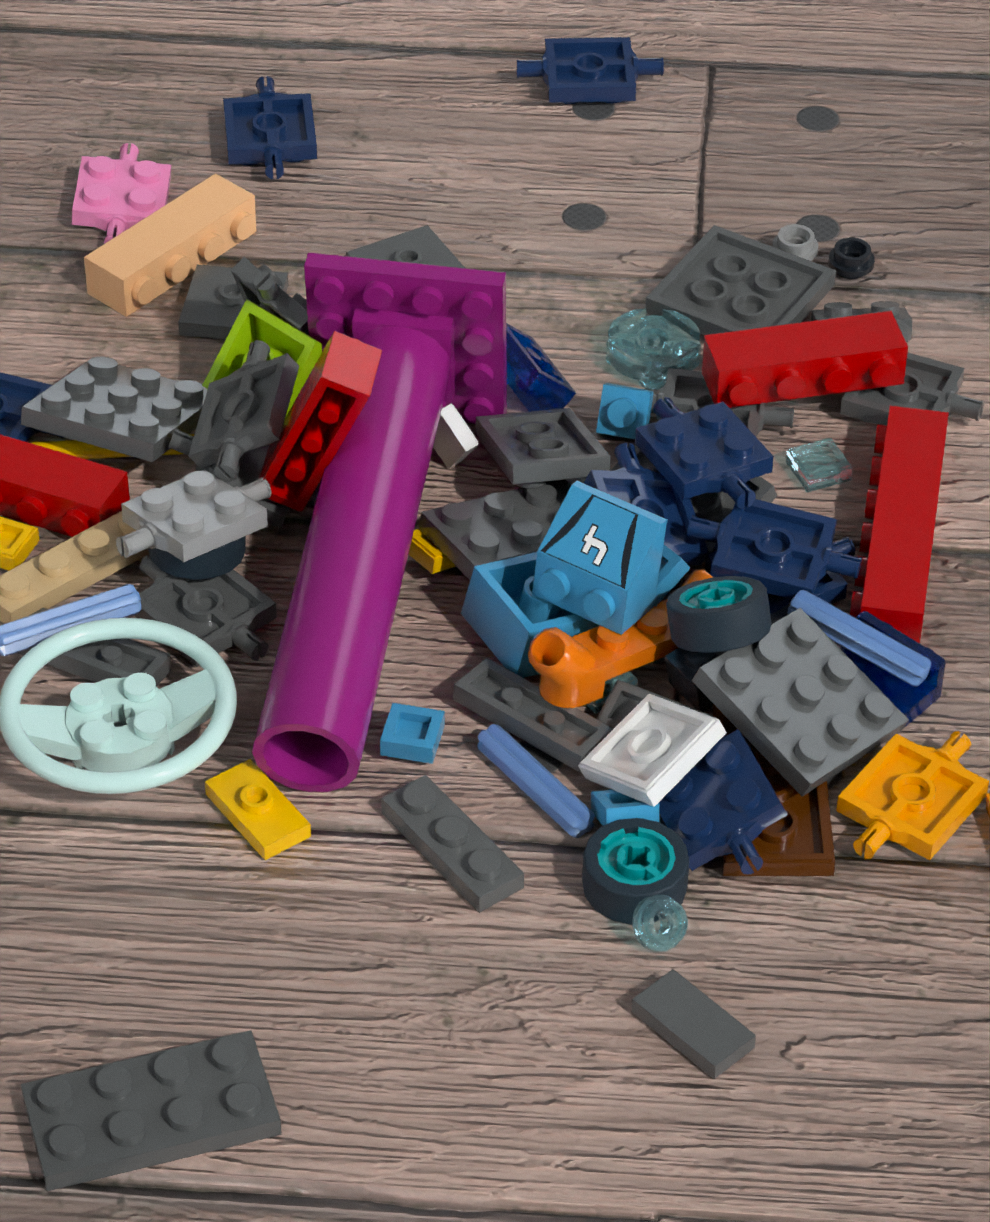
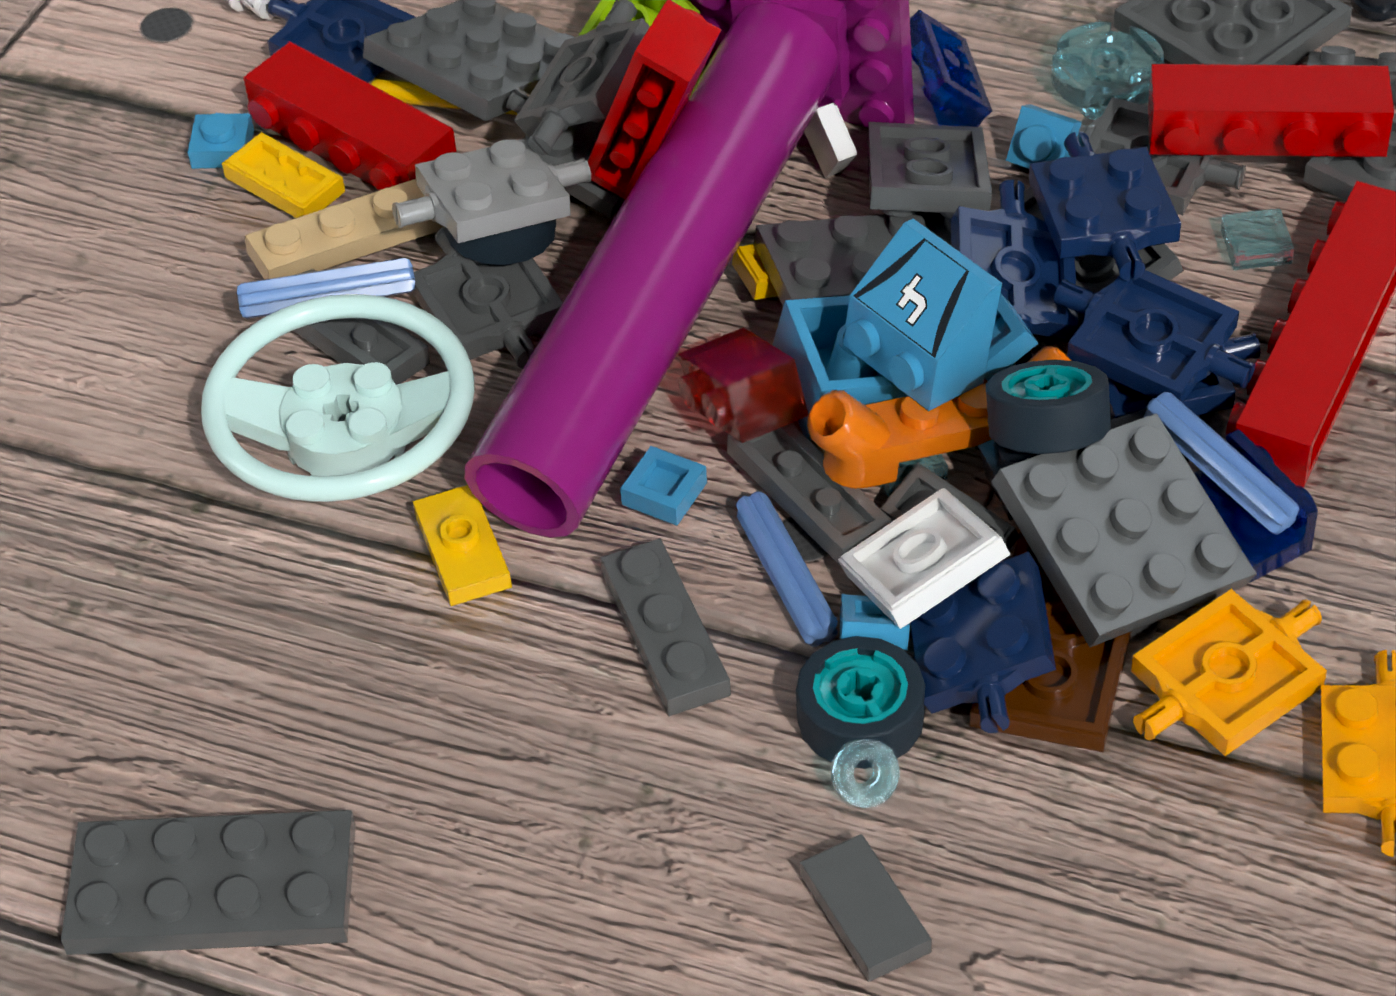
camera: 20 degrees right, 5 degrees up
(454, 641) = (742, 385): none -> clear red brick

